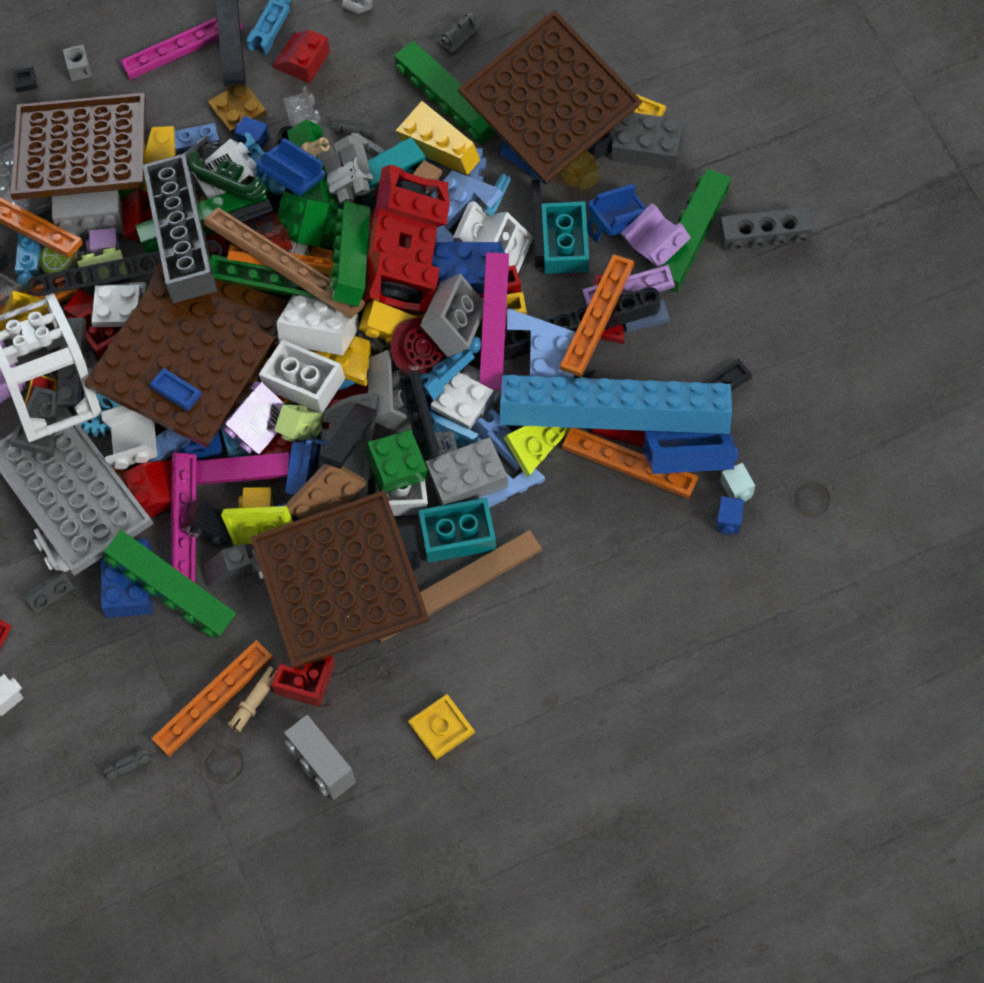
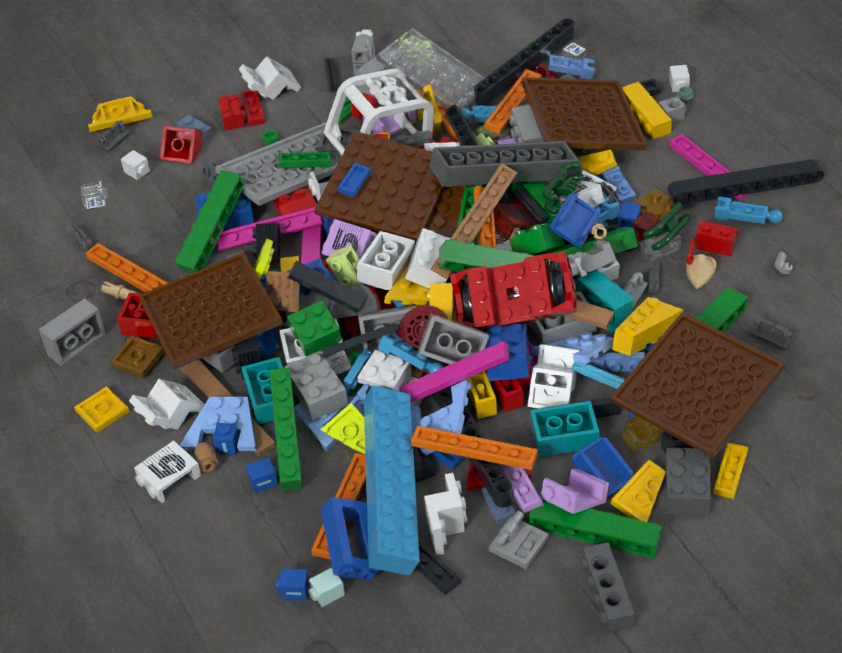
camera: 85 degrees right, 20 degrees down
(20, 45) = (678, 77): none -> white brick
(47, 46) = (684, 93): none -> sand green plate
(50, 749) = (93, 195): none -> clear brick
(73, 469) = (304, 160): none -> green tile
(77, 84) = (647, 111): none -> yellow brick
(274, 118) = (644, 223): none -> clear red brick
(288, 93) = (668, 224): none -> dark green piece
(347, 81) = (699, 268): none -> tan piece
(366, 684) = (137, 357): none -> pearl gold plate
(461, 641) = (167, 404): none -> white bracket
(485, 580) = (223, 410): none -> light blue wing
(519, 579) = (226, 438): none -> blue brick
(531, 505) = (285, 429): none -> green brick
(541, 603) = (205, 457): none -> medium nougat brick
(558, 644) = (164, 469): none -> white panel
(577, 543) = (262, 474): none -> blue brick
(651, 185) = (640, 492): none -> yellow wing
(664, 354) = (445, 513): none -> white bracket
(700, 300) = (518, 541): none -> light grey plate

